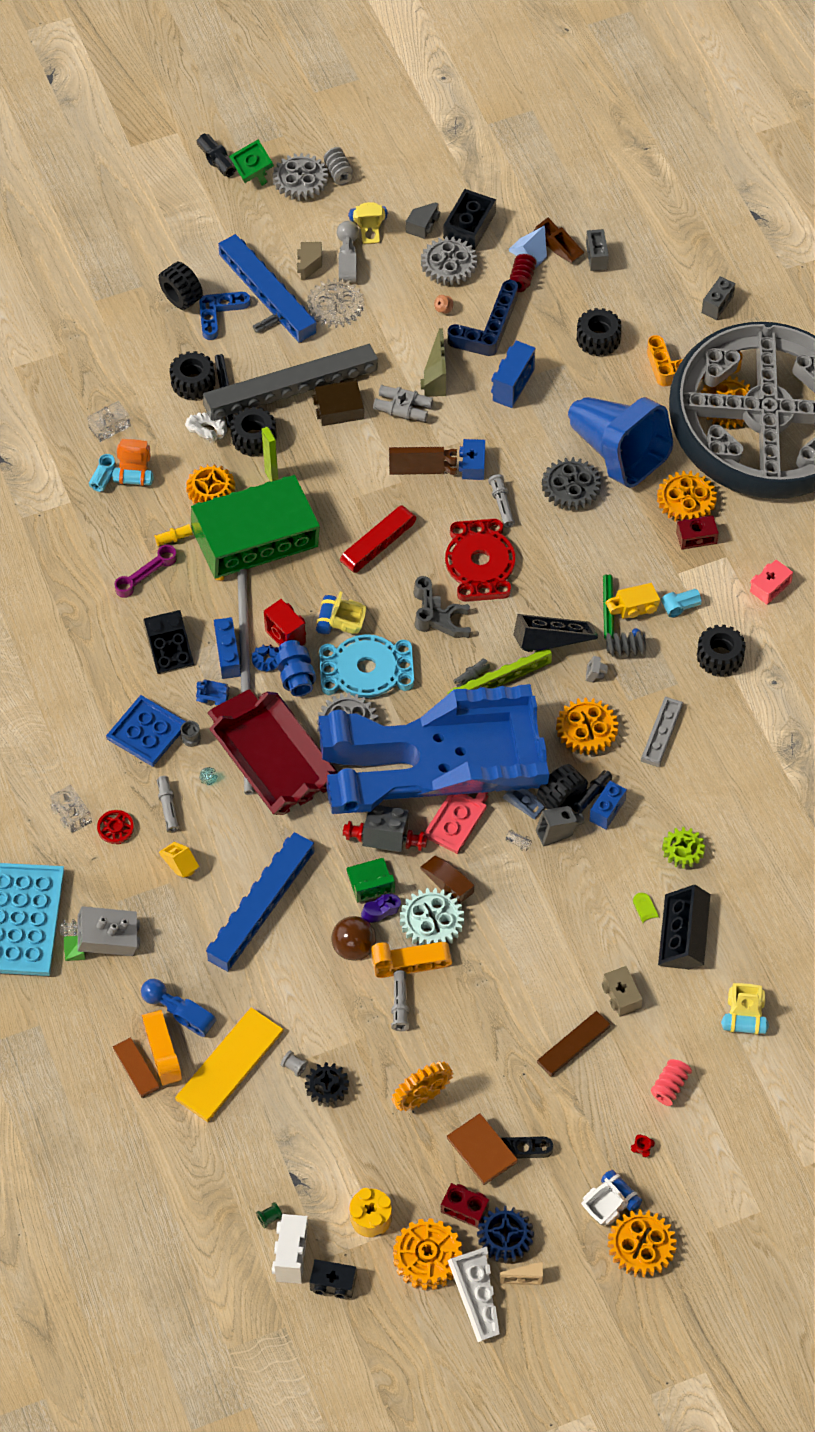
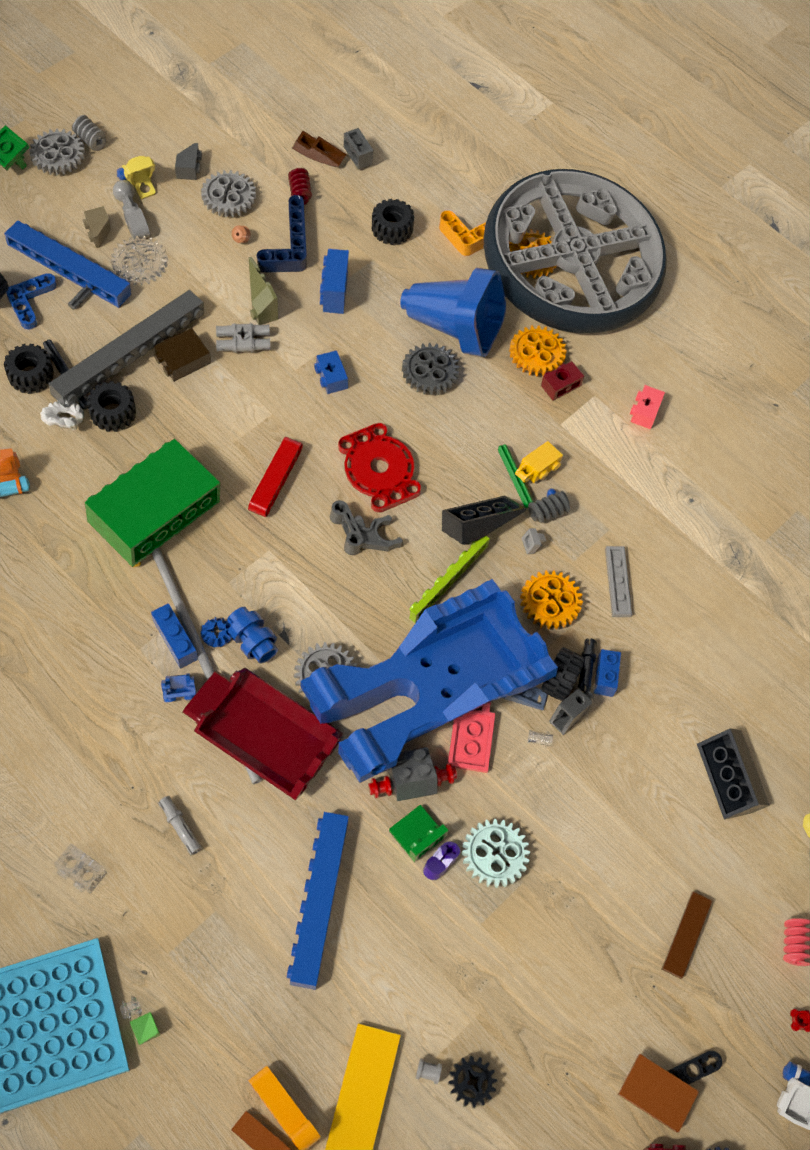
camera: 30 degrees left, 5 degrees up
(108, 931) = (175, 997): light grey piece -> none
(115, 826) = (134, 870): red wheel -> none
(145, 571) = (58, 581): magenta piece -> none
(146, 730) = (126, 752): blue plate -> none
(168, 641) = (111, 648): black slope -> none
(173, 535) = (72, 535): yellow pin -> none
(179, 859) = (216, 883): yellow slope -> none
(184, 1011) = (291, 1056): blue beam -> none
(190, 733) = (173, 735): dark grey wheel -> none
(208, 776) = (209, 779): clear light blue plate -> none
(209, 483) = (79, 473): light orange gear -> none
(270, 454) = (141, 426): lime tile -> none
(284, 624) = (223, 593): red brick -> none
(340, 614) = (272, 564): light yellow piece -> none
(353, 938) = (428, 904): reddish brown piece -> none
(370, 684) = (313, 628): medium azure piece -> none
(400, 1008) = (507, 965): light grey pin -> none
(409, 959) = (478, 916): light orange beam -> none
(421, 460) = (286, 387): reddish brown tile -> none
(422, 1086) = (576, 1051): light orange gear -> none
(448, 878) = (492, 803): reddish brown slope -> none
(470, 218) = (232, 148): black brick -> none
(472, 672) = (421, 582): dark grey pin -> none
(500, 494) = (371, 396): light grey pin -> none
(532, 244) = (296, 158): light blue slope -> none
(622, 991) = (718, 865): dark tan brick -> none
(644, 907) = (683, 763): lime piece -> none
(677, 603) = (575, 453): medium azure piece -> none
(682, 850) = (697, 699): lime gear -> none
(717, 662) = (640, 474): black tyre -> none
(718, 298) = (481, 163): dark grey brick -> none

